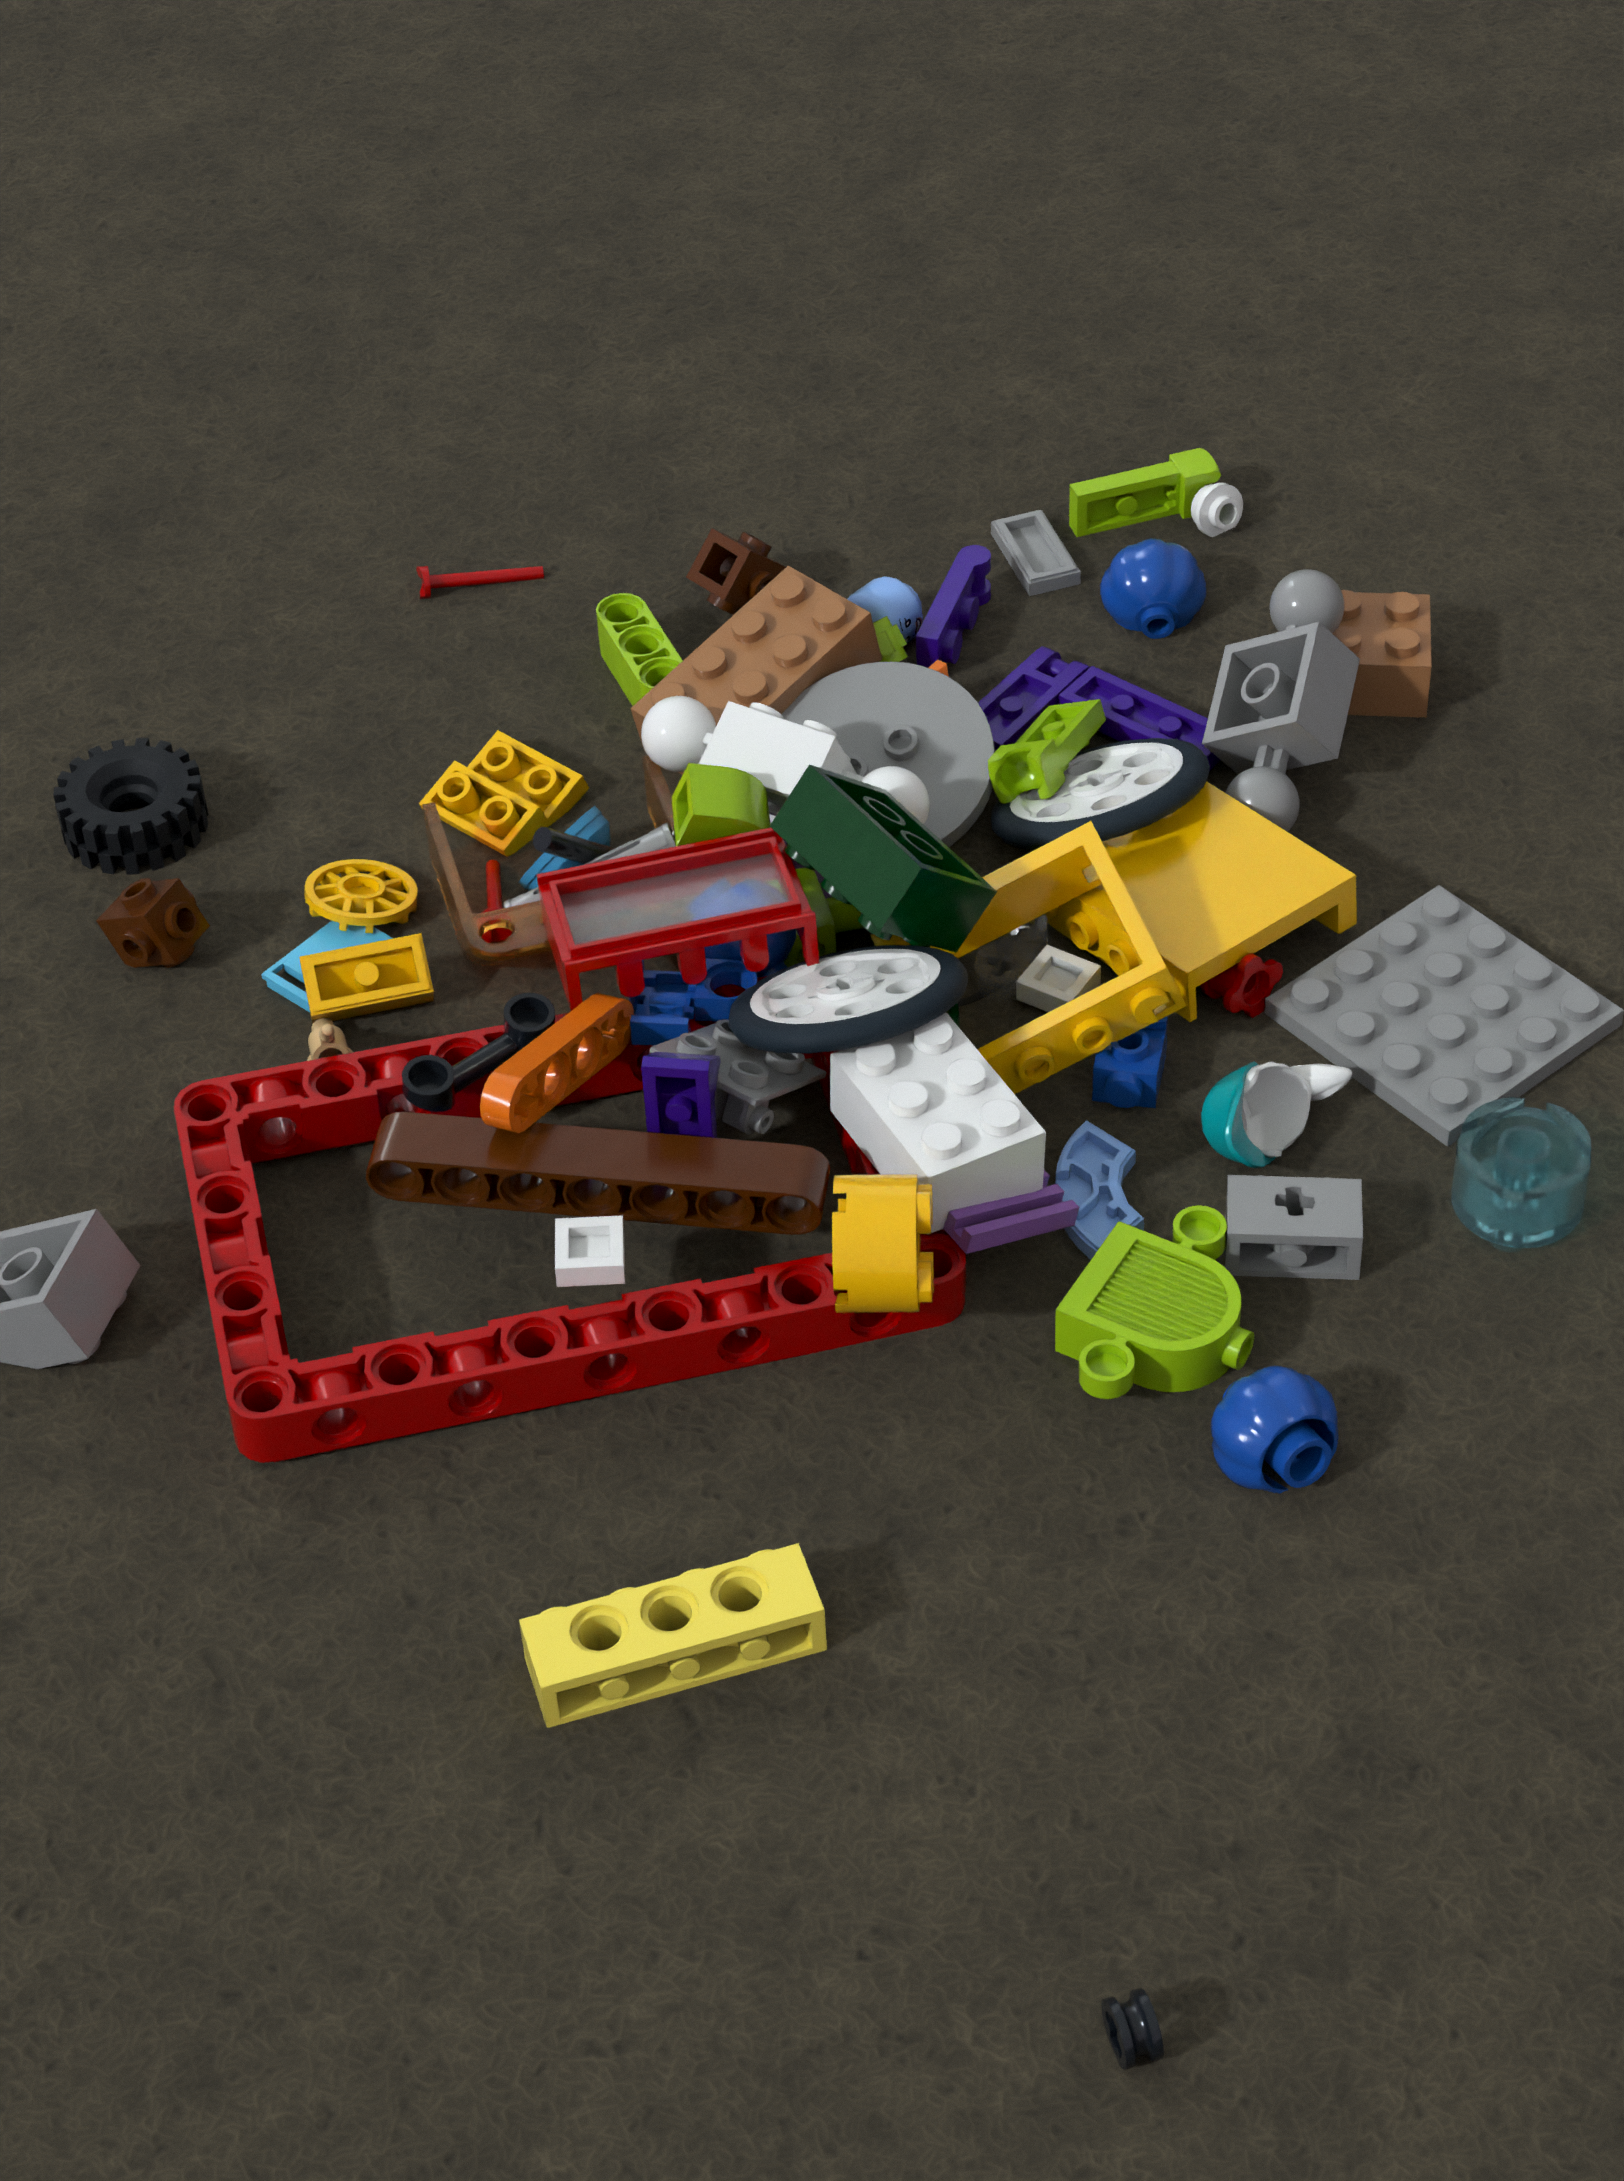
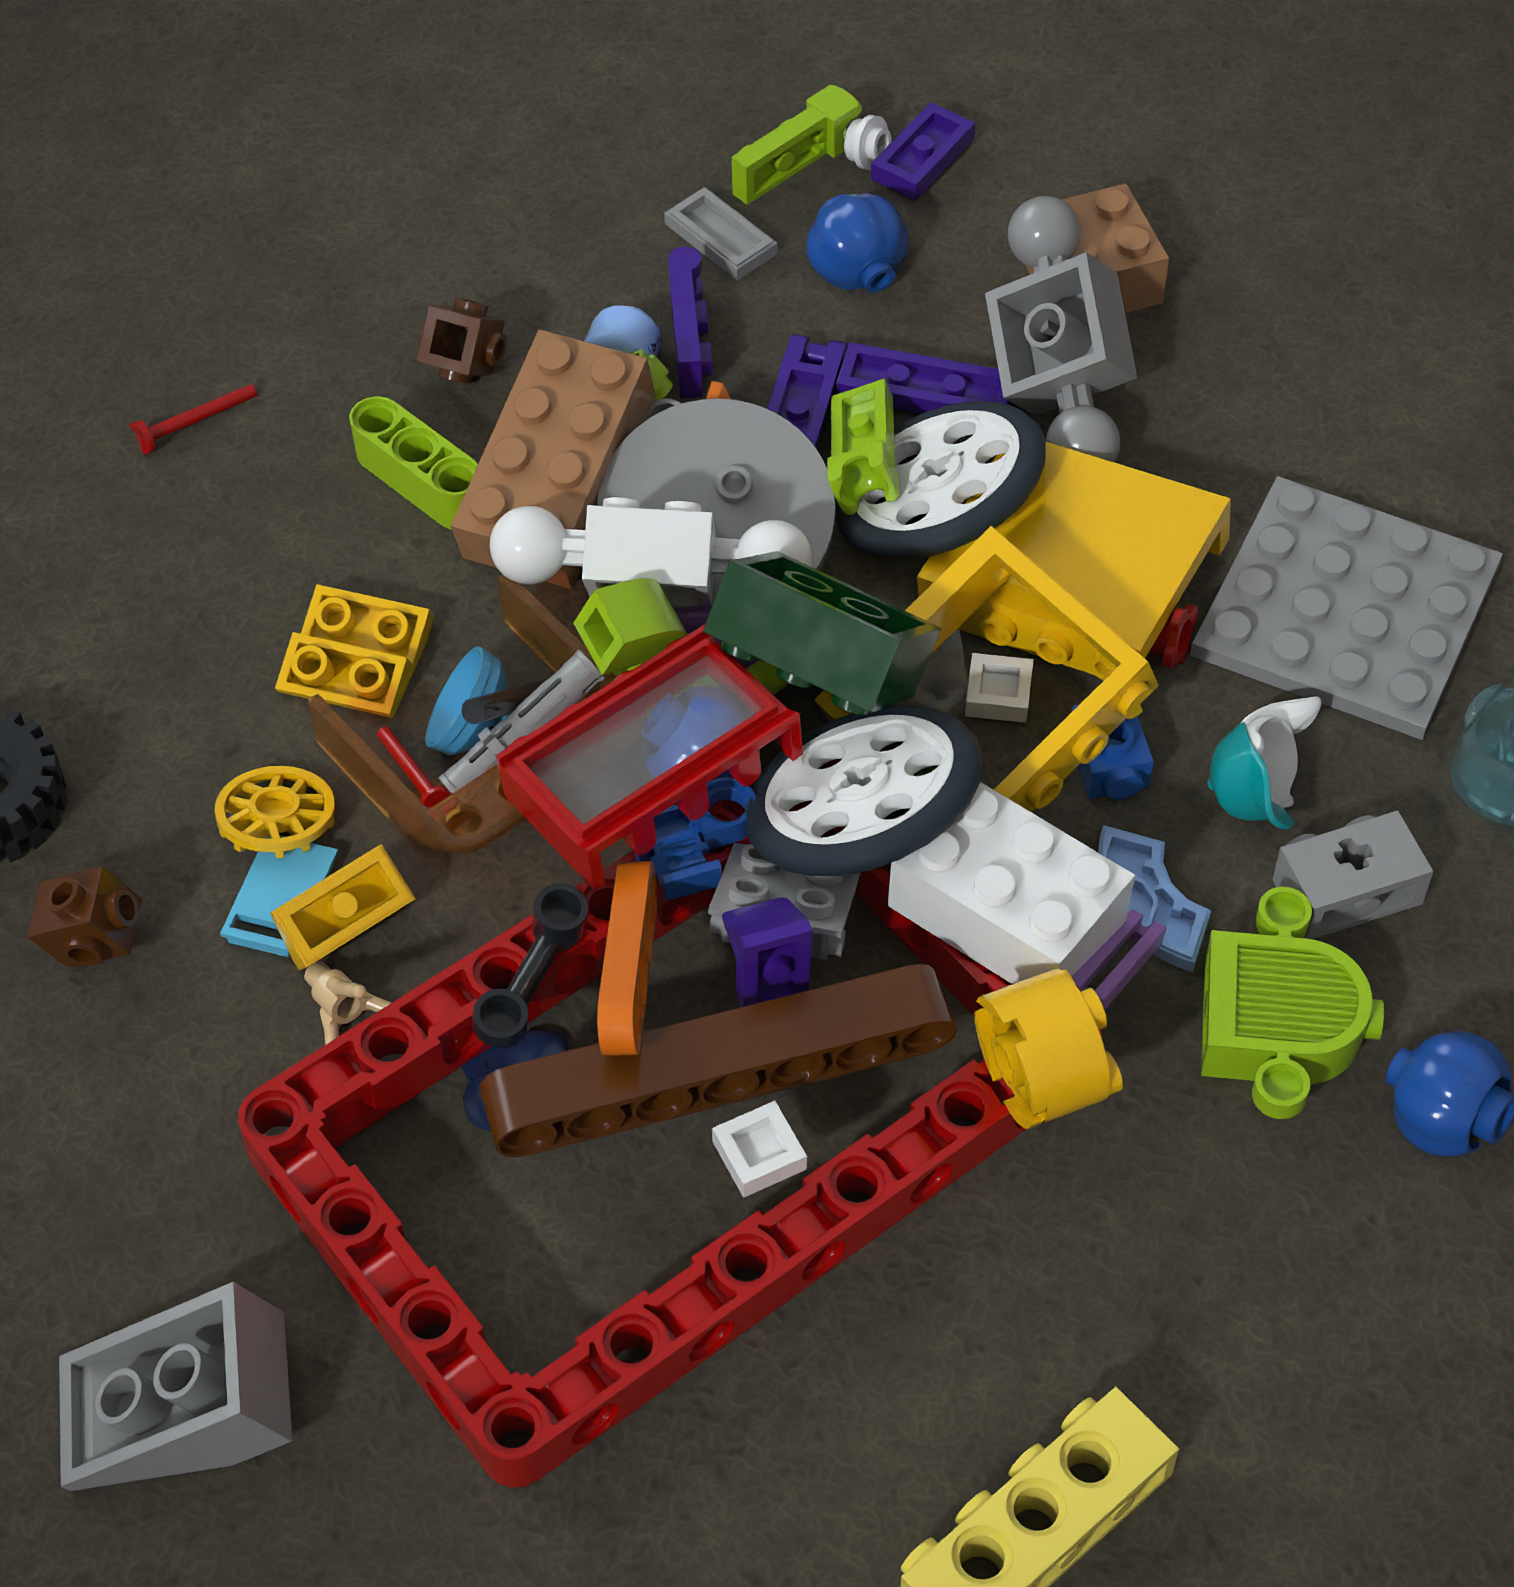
camera: 25 degrees left, 10 degrees up
(1266, 530) = (922, 151): none -> dark purple plate

